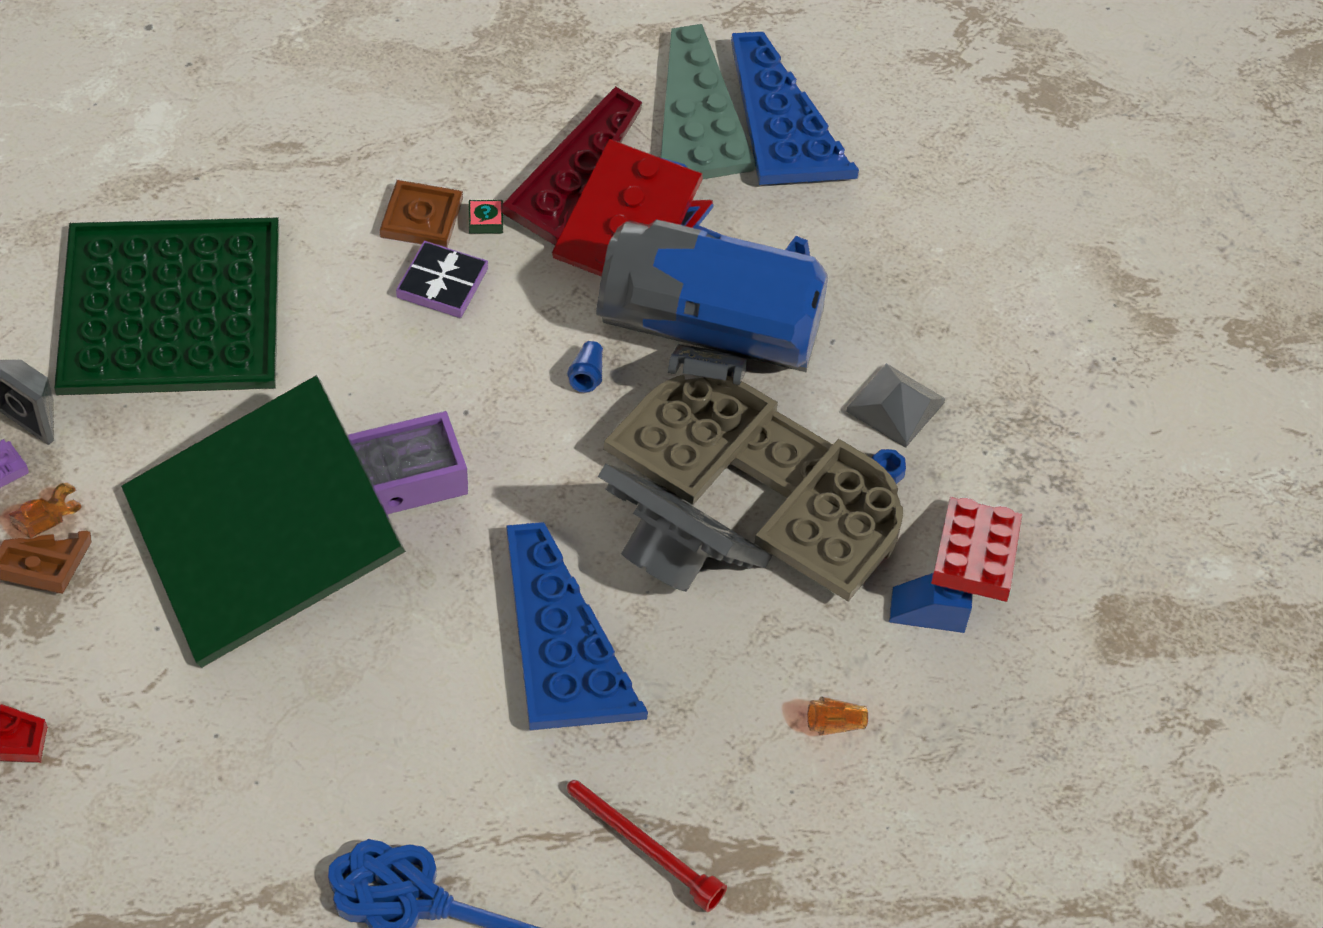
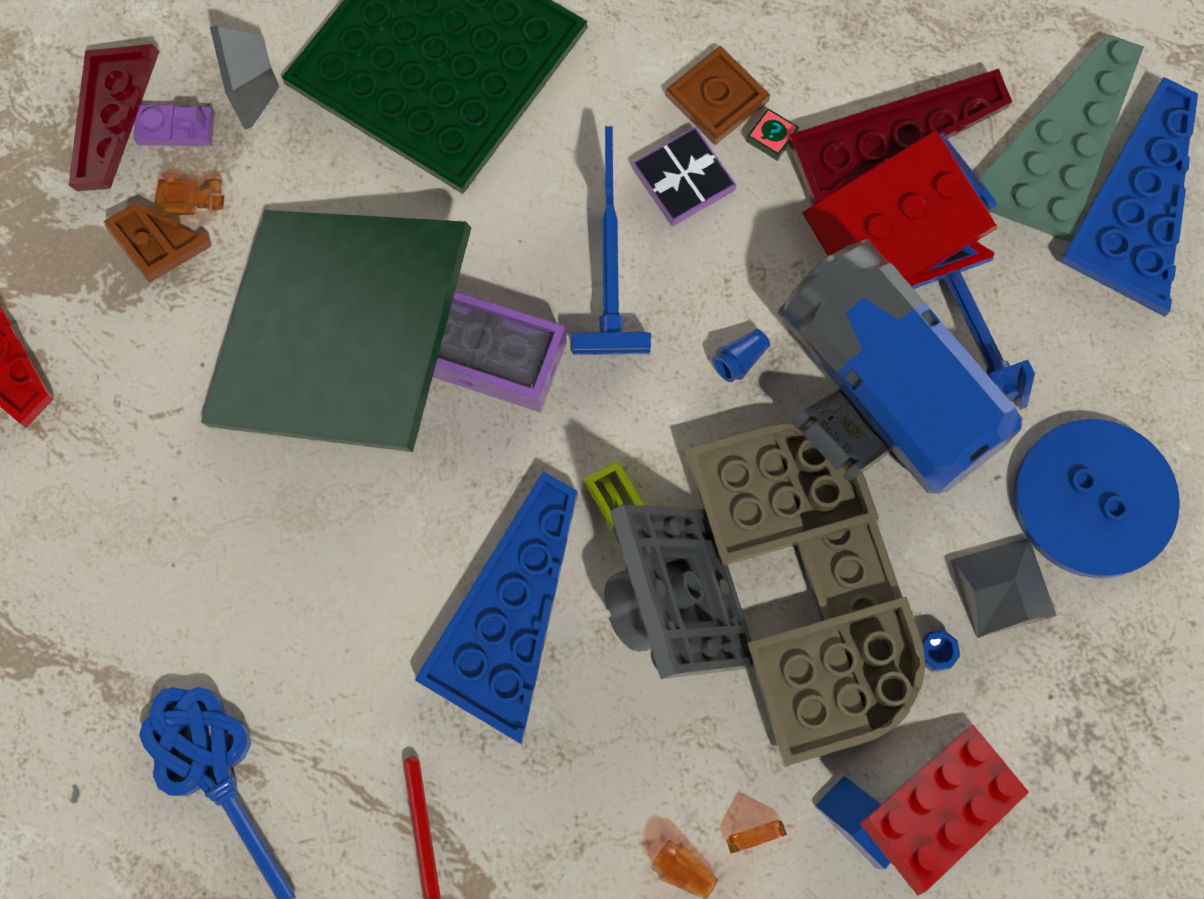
camera: 45 degrees right, 20 degrees up
(480, 410) = (611, 338): none -> blue piece
(578, 522) = (602, 476): none -> neon yellow tile
(866, 662) = (756, 836): none -> clear orange tile
(908, 312) = (1096, 498): none -> blue plate

